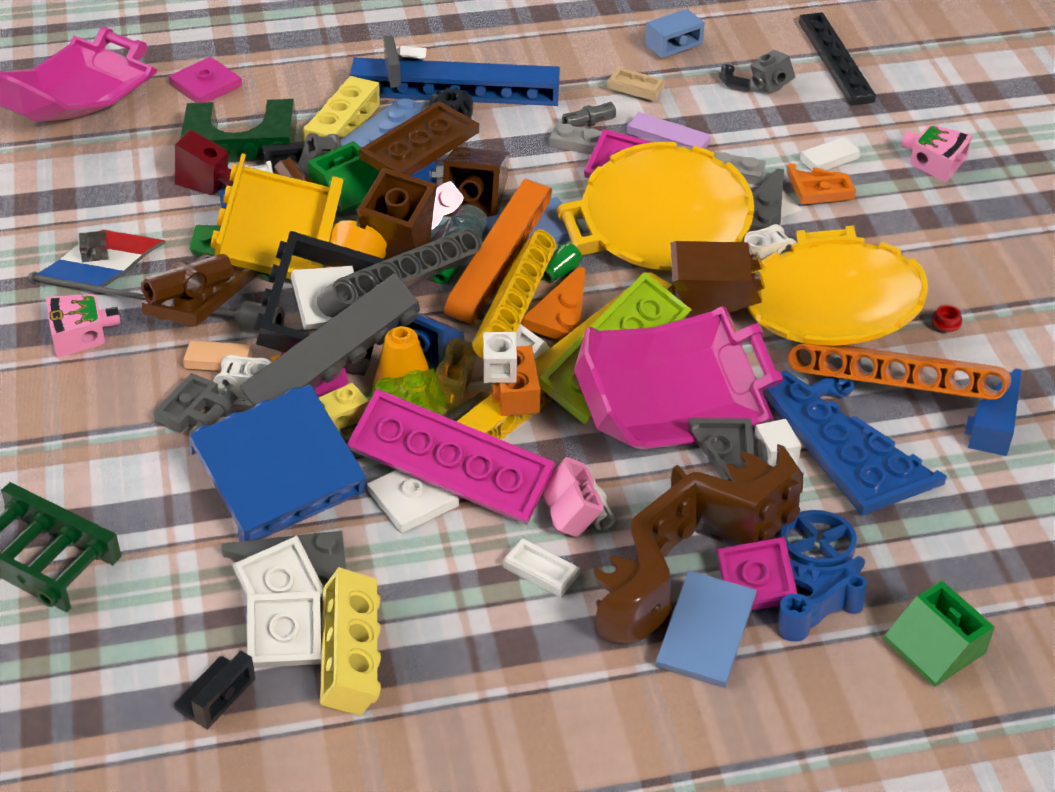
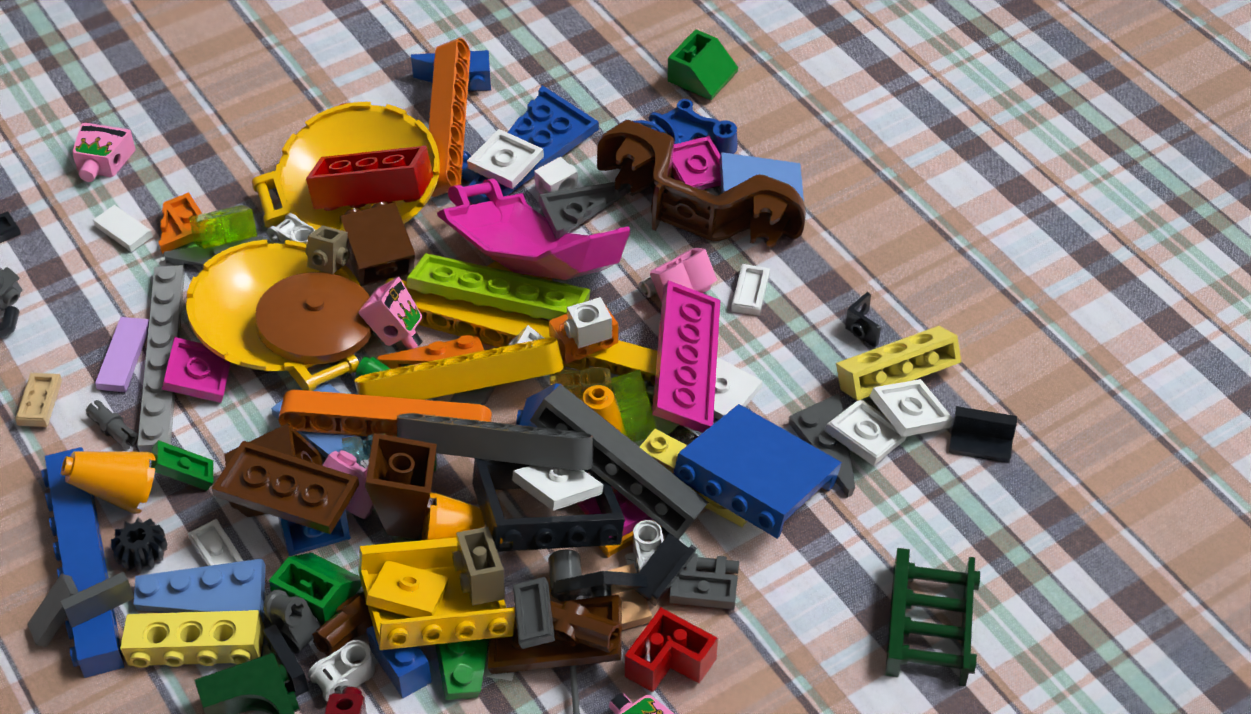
camera: 110 degrees left, 5 degrees up
(135, 353) = (670, 644): none -> red brick
(206, 251) = (533, 612): none -> dark grey tile
(210, 363) = (665, 567): none -> black panel
(215, 310) = (600, 584): none -> black plate
(267, 231) = (479, 566): none -> dark tan brick
(285, 199) = (407, 590): none -> yellow plate
(432, 633) = (861, 325): none -> black bracket
(510, 88) = (112, 476): none -> light orange cone
(512, 130) = (182, 465): none -> green plate
(613, 267) = (393, 314): none -> bright pink torso
(634, 221) = (313, 318): none -> dark orange dish
(710, 226) = (327, 249): none -> dark tan brick
(791, 196) = (223, 226): none -> clear neon green brick
(802, 280) = (370, 178): none -> red brick
(814, 401) = (505, 158): none -> white plate

